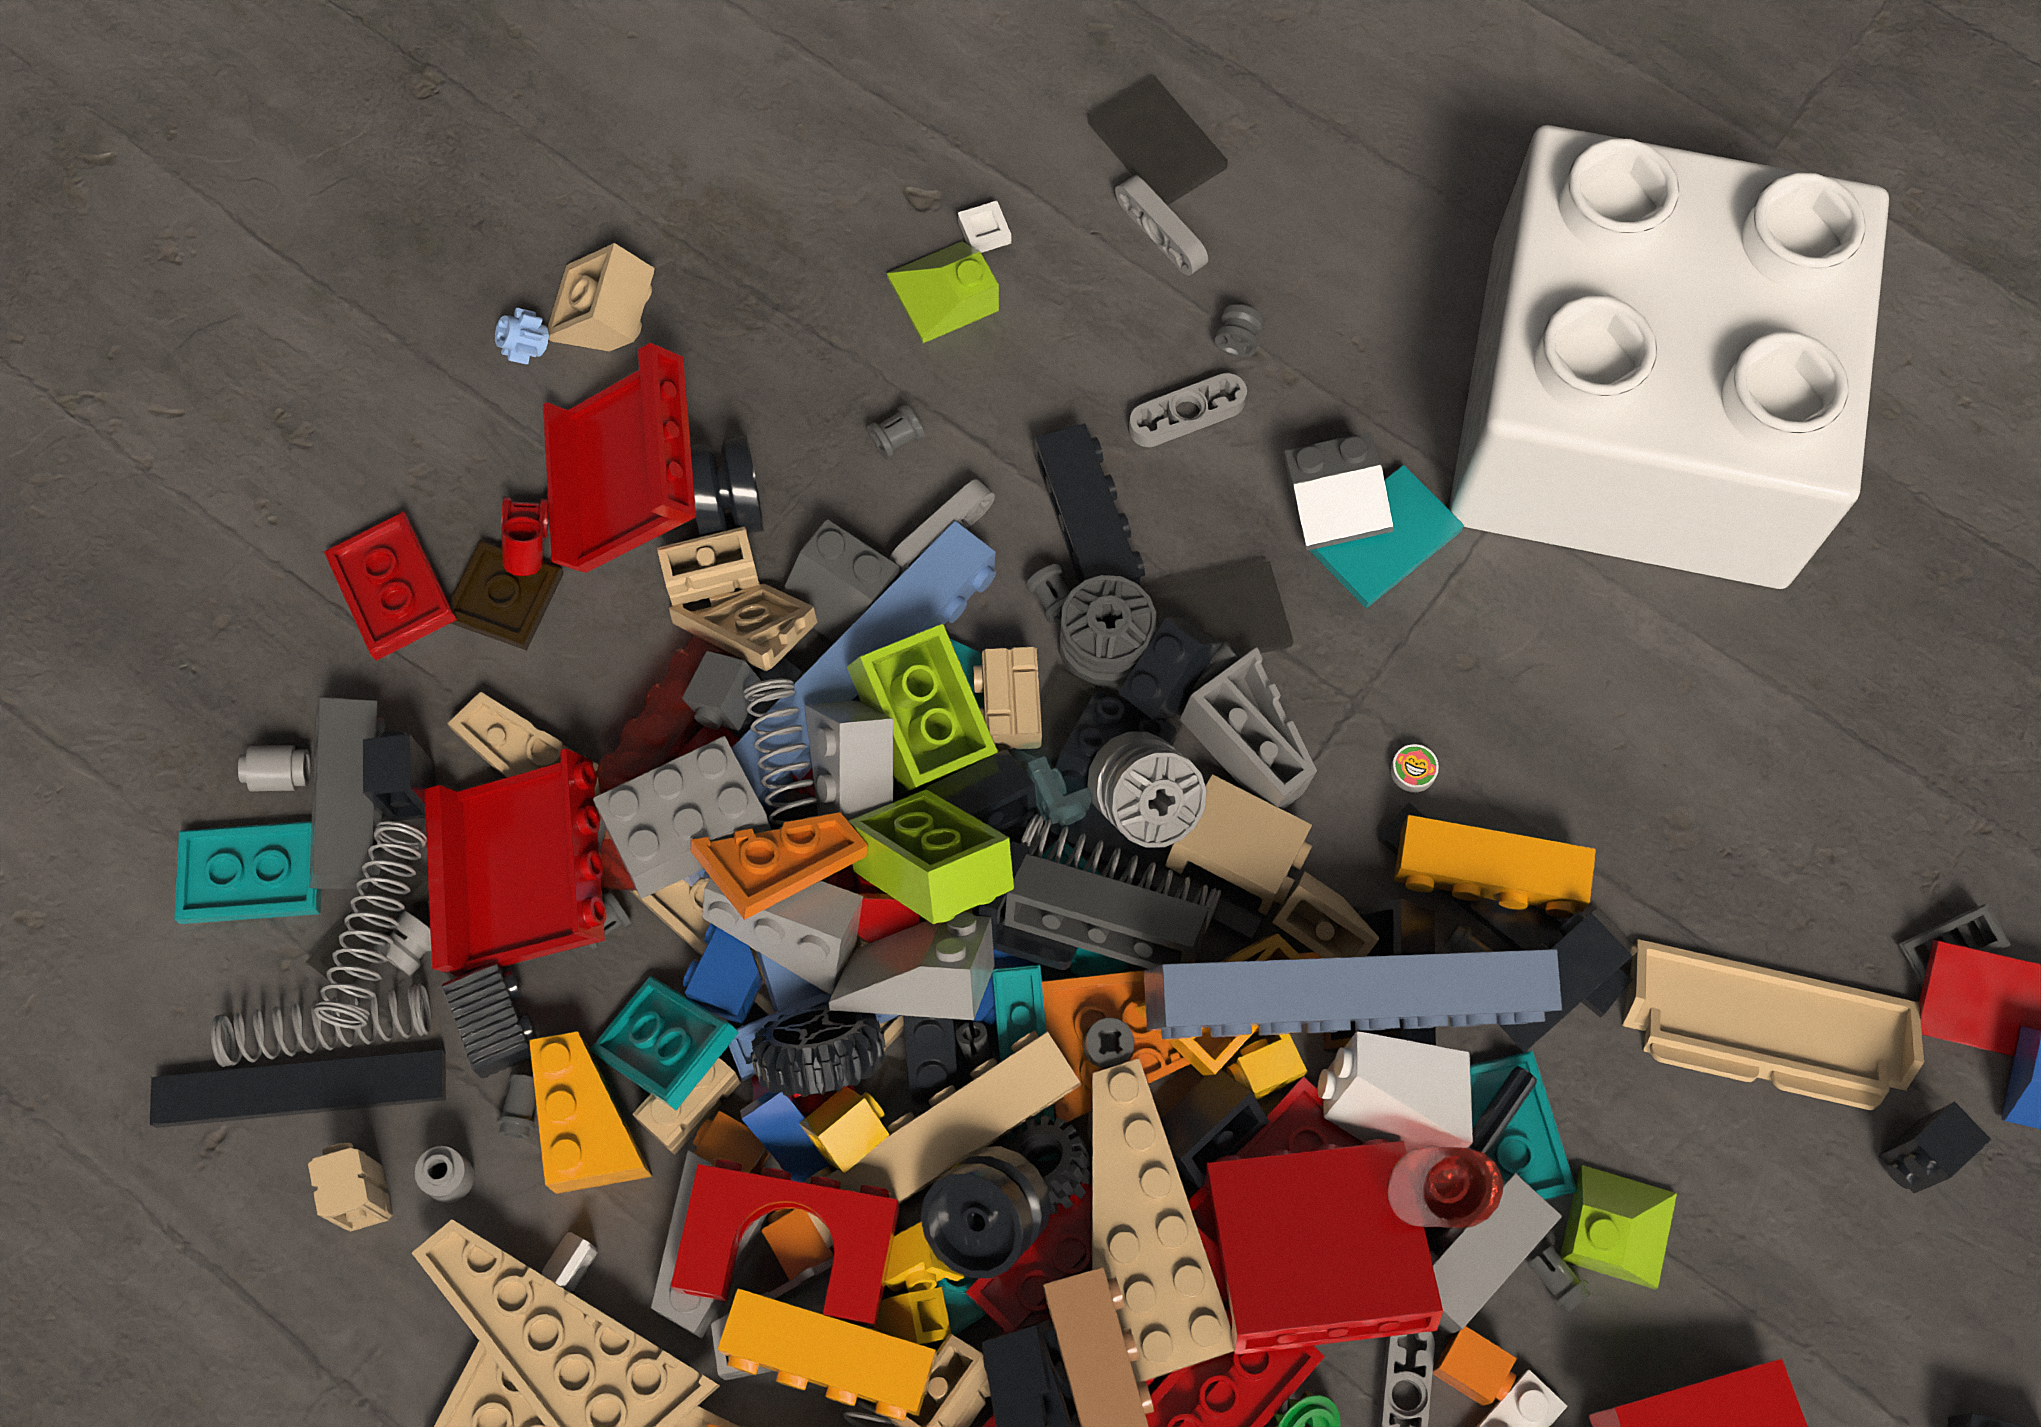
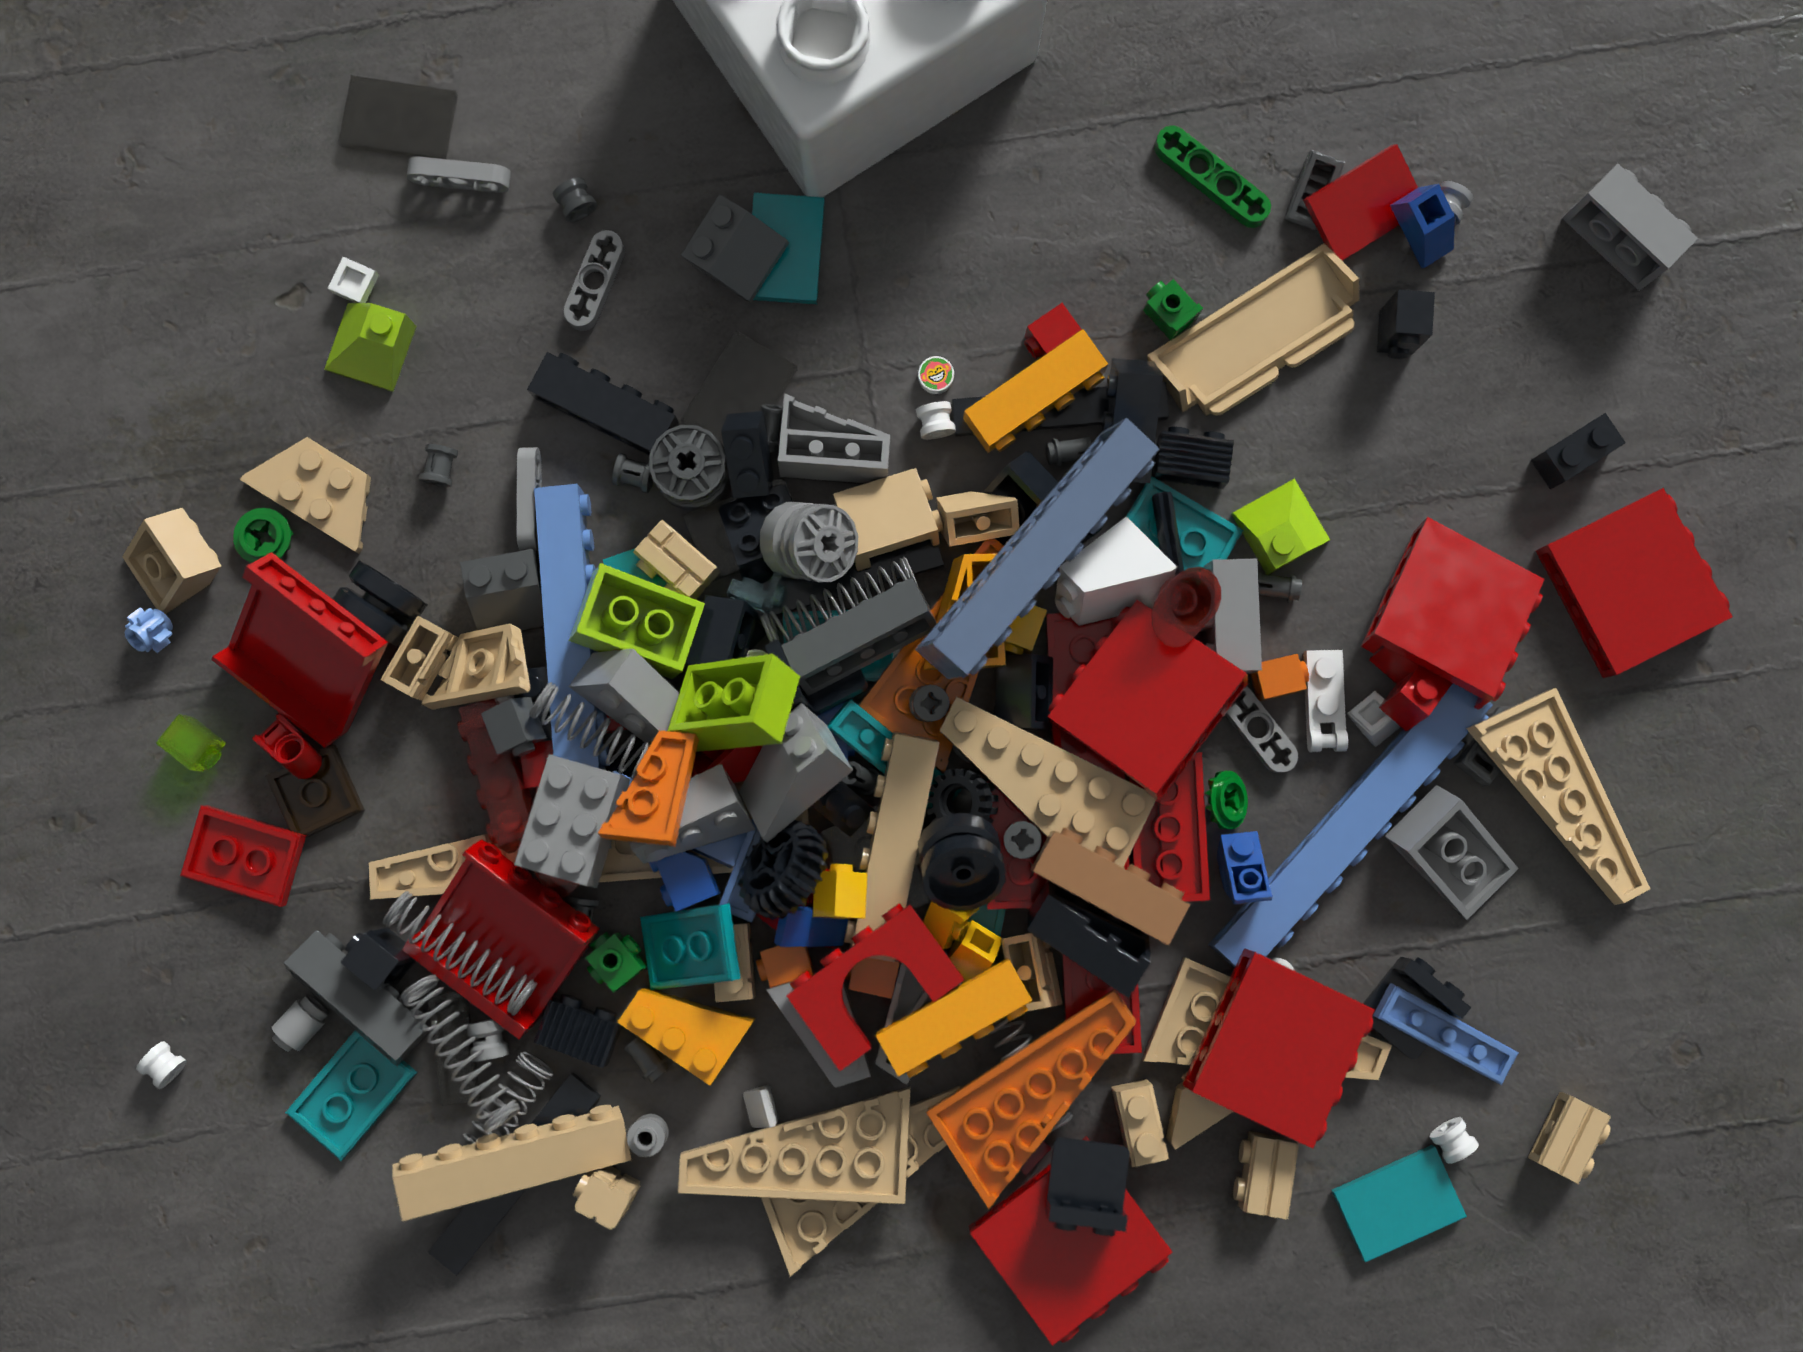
camera: 45 degrees left, 15 degrees up
(132, 686) = (161, 1065): none -> white wheel
(305, 1065) = (510, 1161): none -> tan brick
(452, 455) = (191, 743): none -> clear neon green brick
(480, 924) = (400, 910): none -> light grey piece
(587, 988) = (628, 964): none -> green brick
(705, 341) = (258, 521): none -> green gear
(776, 358) = (317, 489): none -> tan wing
(1068, 1261) = (1028, 840): none -> dark grey wheel
(1373, 804) = (935, 420): none -> white wheel
(1563, 824) = (1050, 331): none -> red brick
(1591, 1074) = (1193, 458): none -> black brick
(1696, 931) = (1171, 320): none -> green brick
(1851, 840) = (1208, 181): none -> green beam

